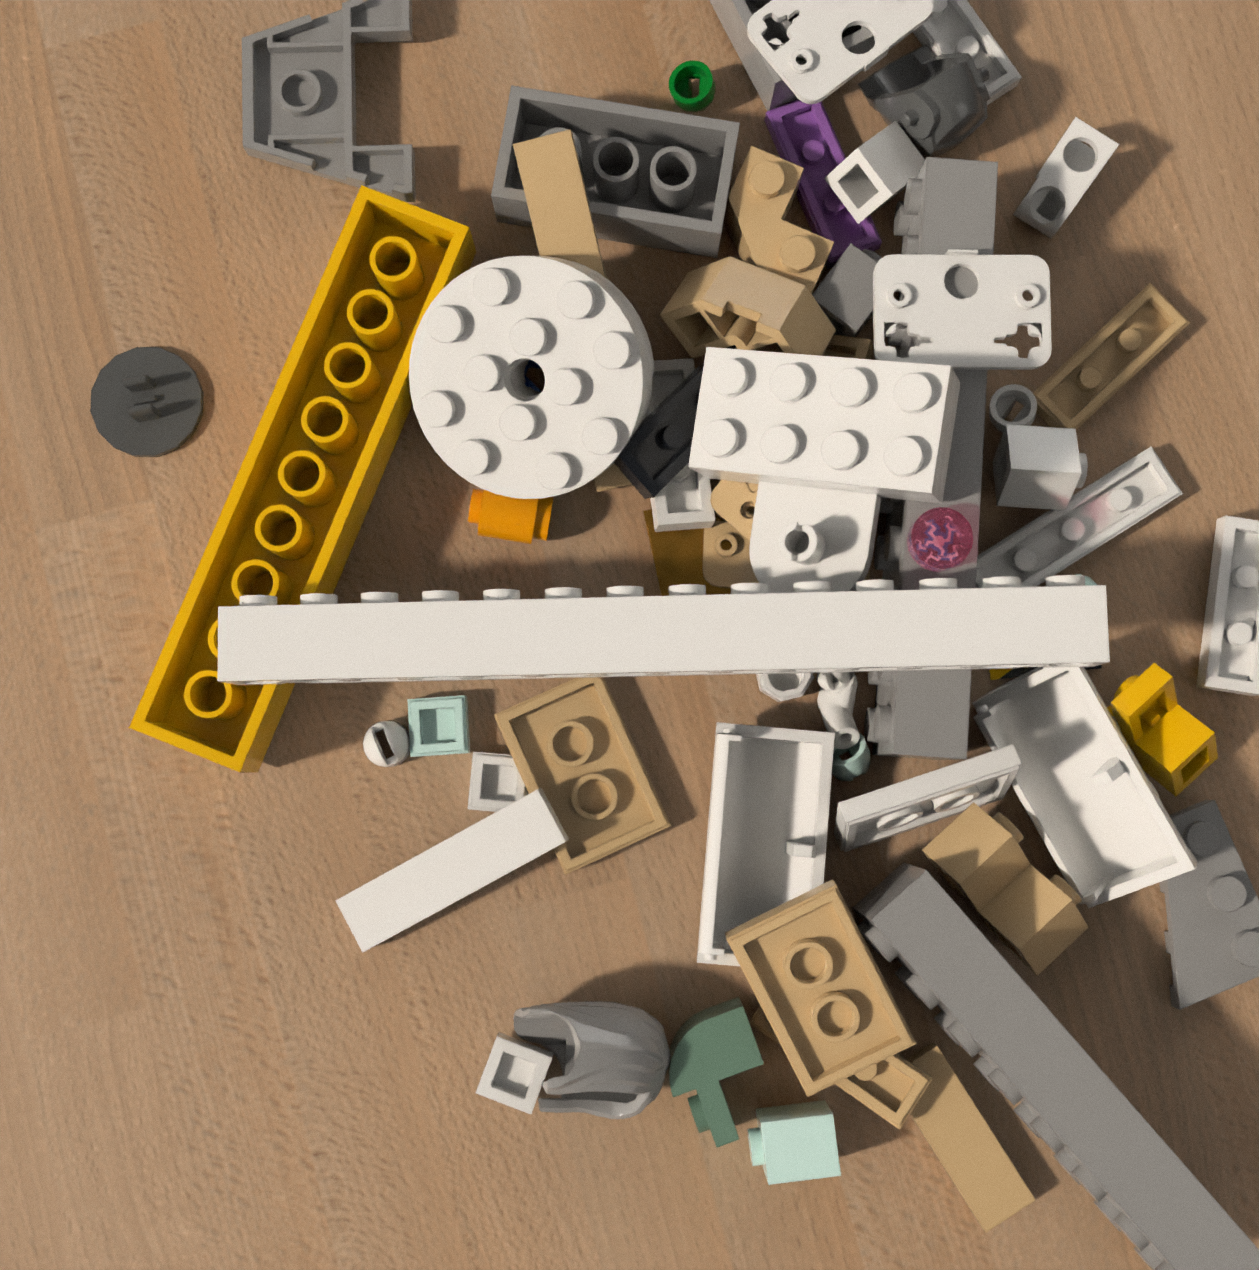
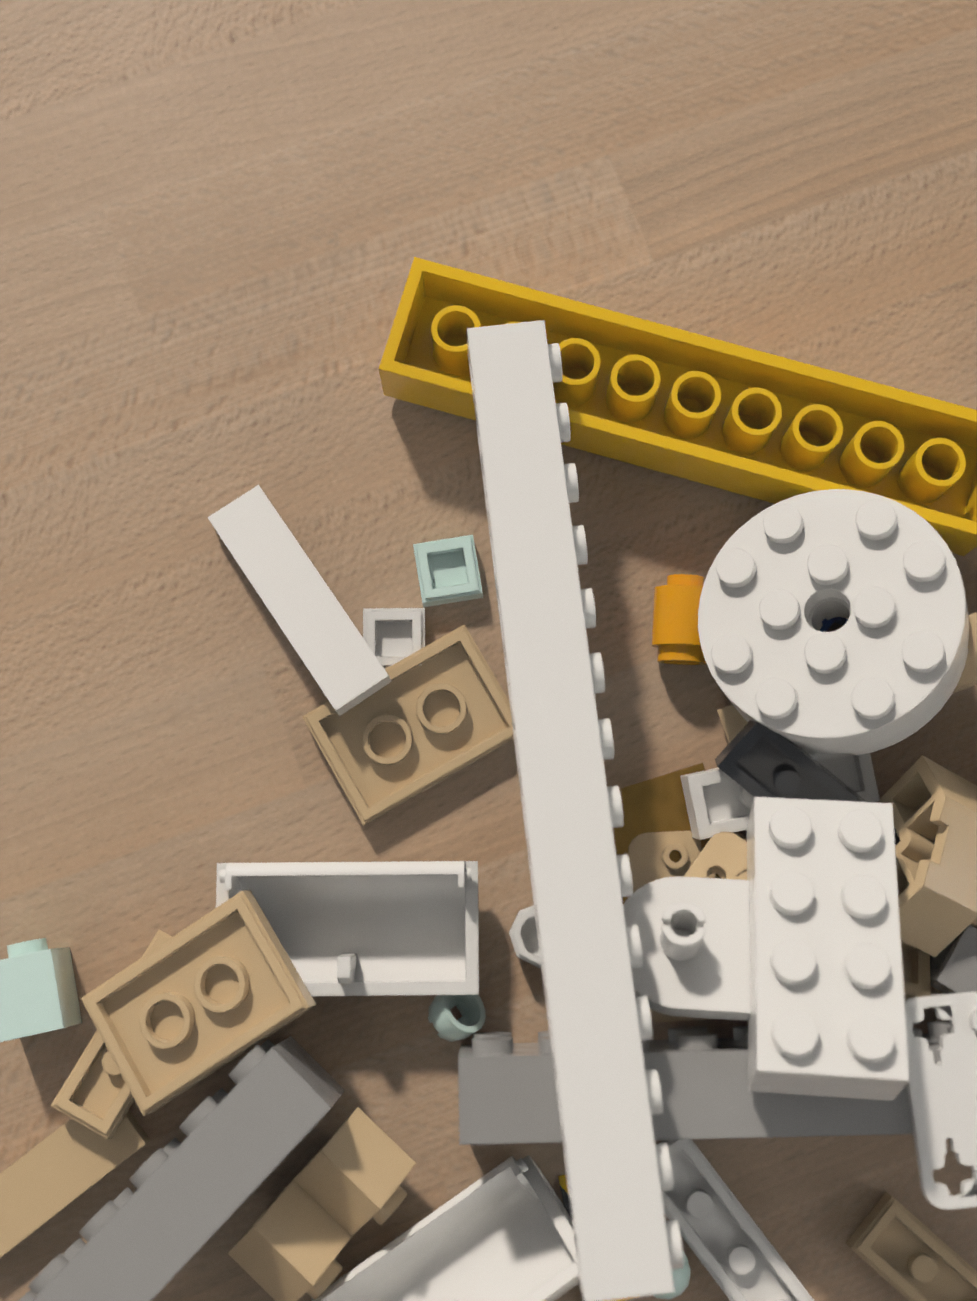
camera: 85 degrees right, 5 degrees down
(147, 402) = (753, 244): dark grey piece -> none
(397, 738) = (430, 528): white hinge -> none
(514, 1073) = (93, 684): white plate -> none
(607, 1054) = (113, 782): light grey hair -> none
(709, 1049) = (124, 885): sand green brick -> none
(836, 706) = (508, 997): white arm -> none
(925, 798) = (415, 1106): white tile -> none
(940, 539) = (707, 1092): clear pink tile -> none
(1003, 402) = (878, 1164): white hinge -> none
(1038, 467) = (808, 1212): white brick -> none

